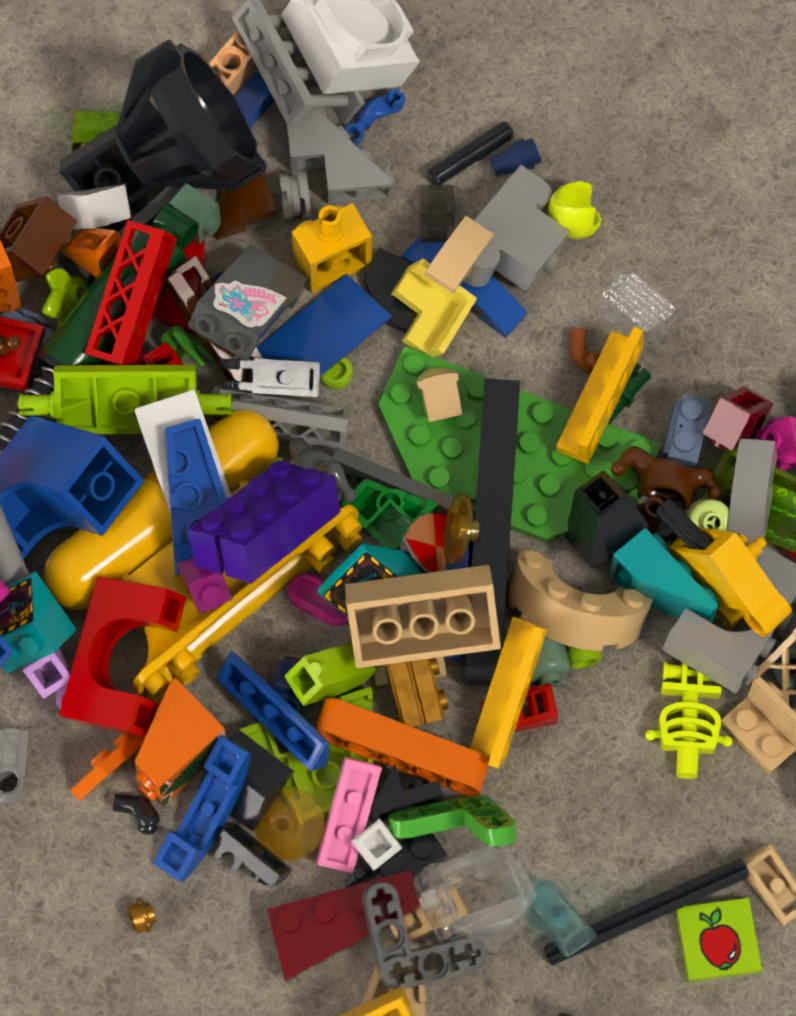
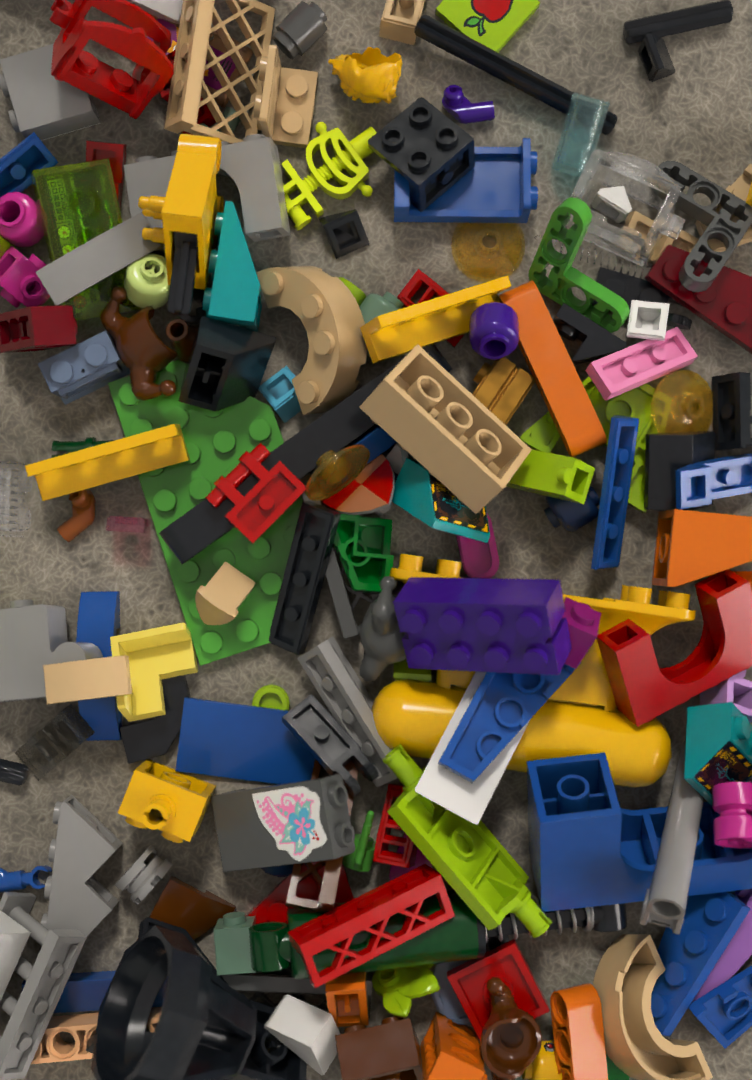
camera: 125 degrees left, 20 degrees up
(404, 456) = (304, 577): none -> black tile
(465, 723) = (494, 330): none -> dark purple head
(479, 461) = (265, 501): none -> red plate
(486, 899) = (612, 203): none -> white slope
(533, 808) = (488, 263): none -> clear yellow dish
(546, 376) = (128, 524): none -> clear pink tile
(553, 550) = (281, 394): none -> medium azure slope
(598, 804) = (489, 193): none -> blue panel
(633, 693) = (344, 232): none -> black slope
(642, 787) = (425, 151): none -> black bracket
(653, 856) = (463, 110): none -> dark purple arm
(738, 801) = (368, 75): none -> yellow hair

